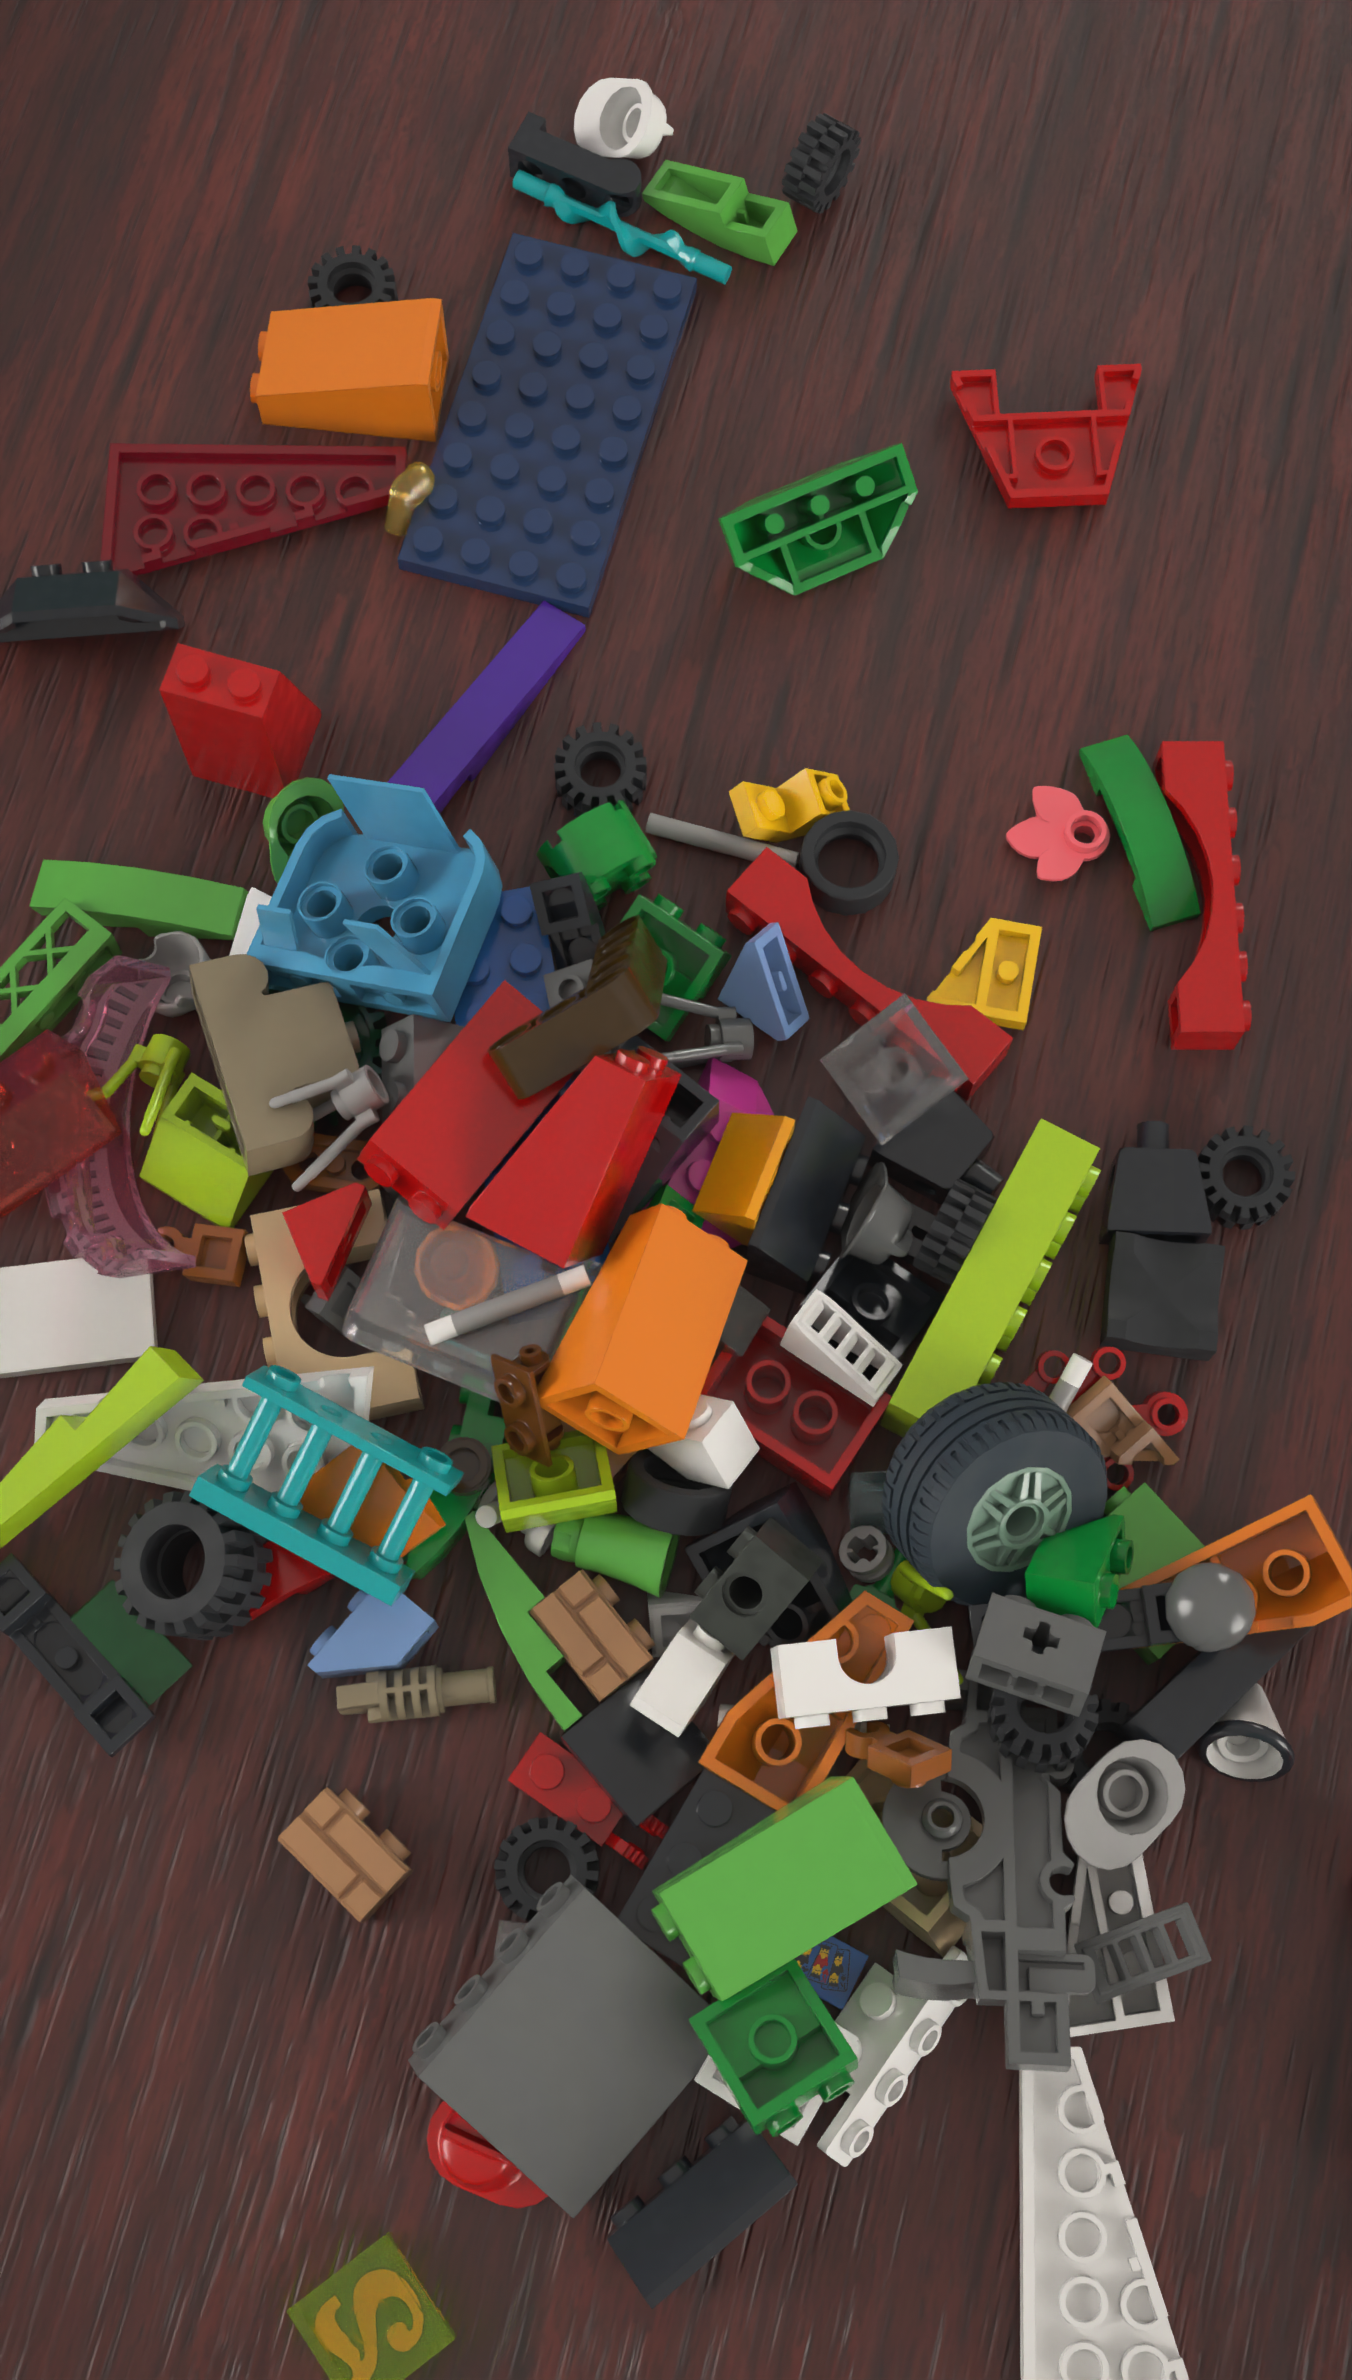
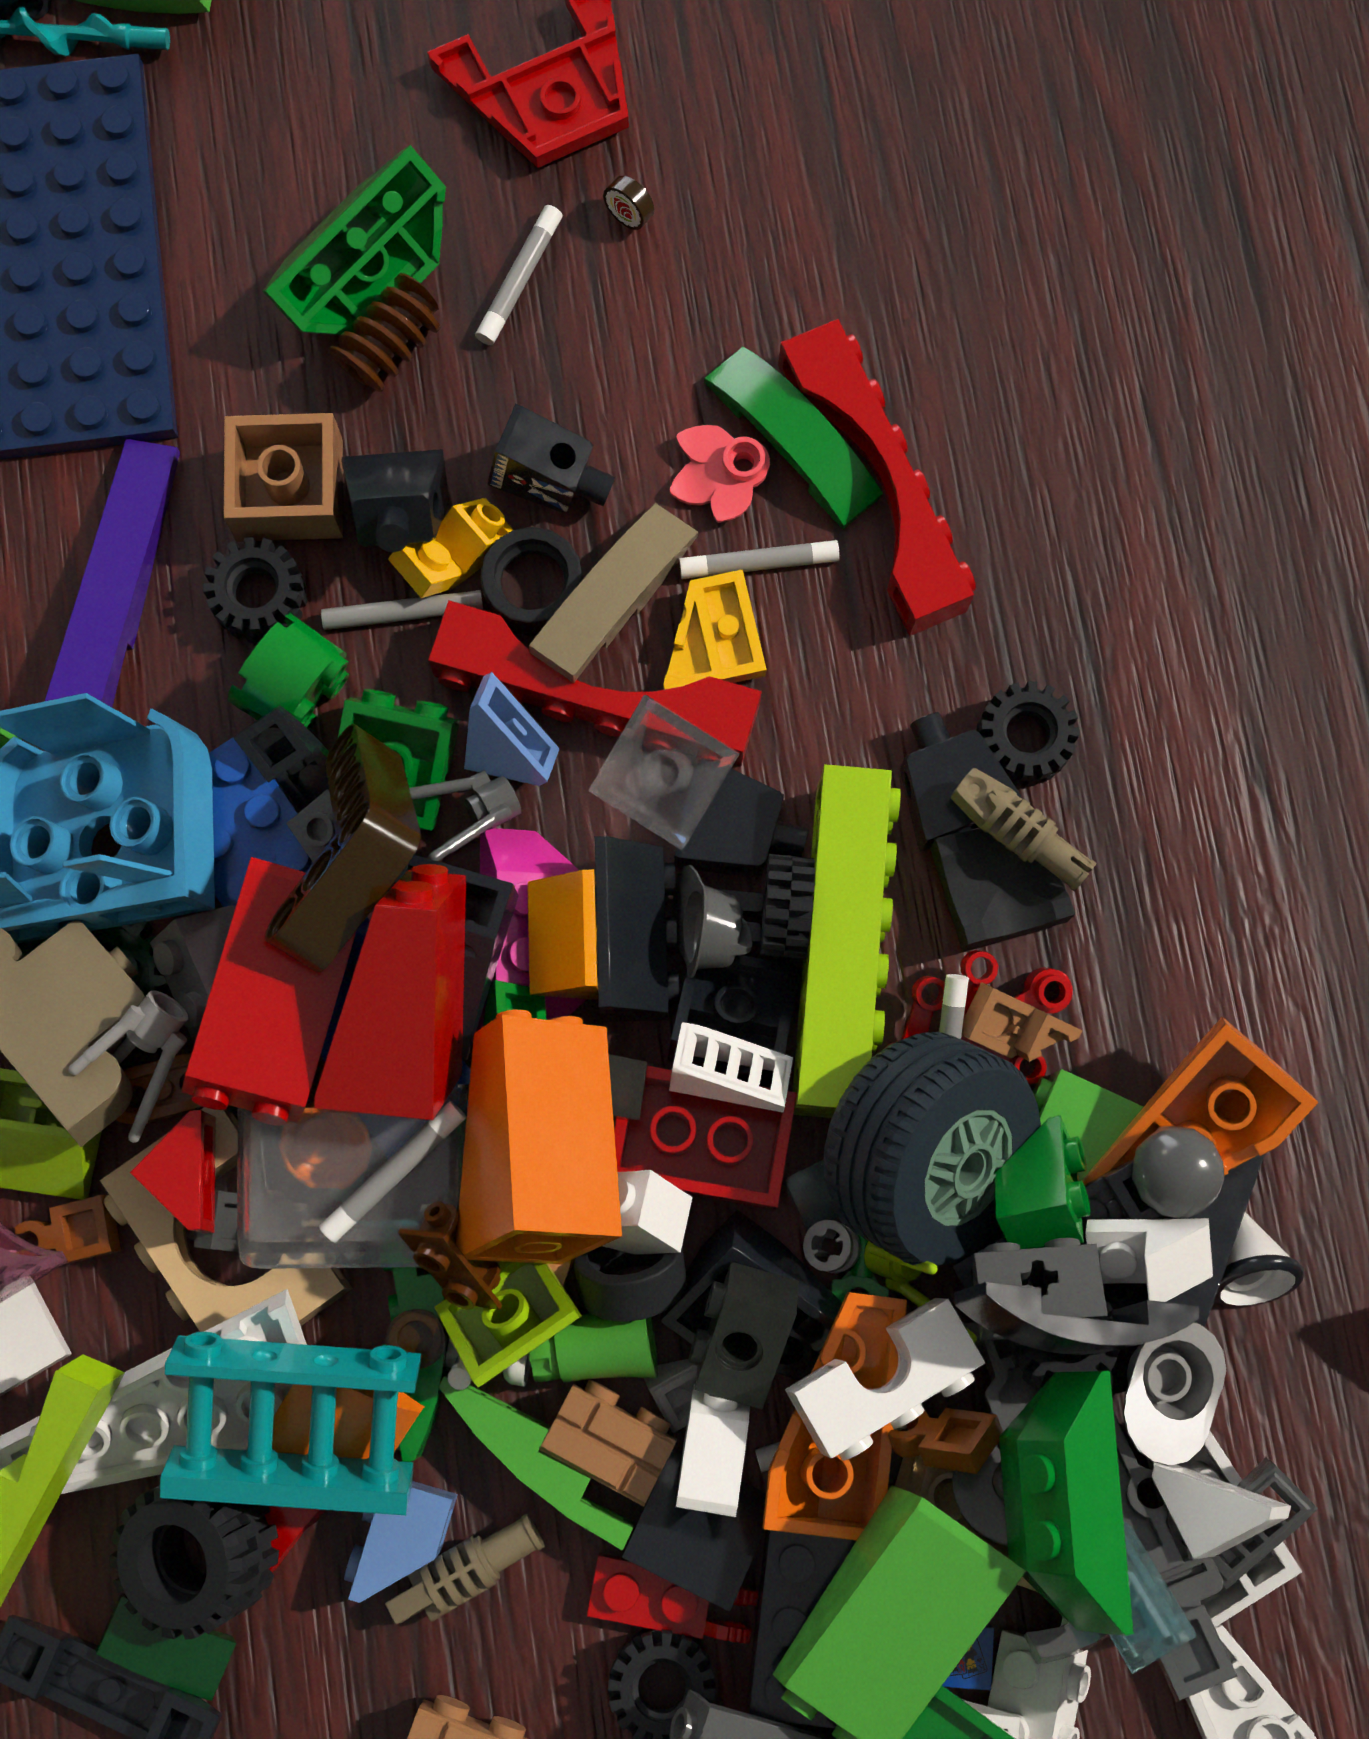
camera: 25 degrees left, 5 degrees up
(667, 685) = (283, 477): none -> medium nougat brick
(759, 740) = (396, 497): none -> black torso
(811, 597) = (386, 332): none -> reddish brown piece
(904, 764) = (546, 463): none -> black torso
(917, 899) = (613, 592): none -> dark tan slope
(951, 594) = (518, 275): none -> light grey bar
(983, 1845) = (1068, 1501): none -> green wedge
(1003, 1956) = (1156, 1615): none -> clear light blue slope
(1004, 1651) = (1018, 1316): none -> black slope
(1063, 926) = (759, 559): none -> light grey bar
(1077, 569) = (628, 202): none -> dark brown tile
(1112, 1924) = (1213, 1512): none -> white slope
(1156, 1669) = (1158, 1252): none -> white slope
(1197, 1250) = (1020, 827): none -> dark tan hinge

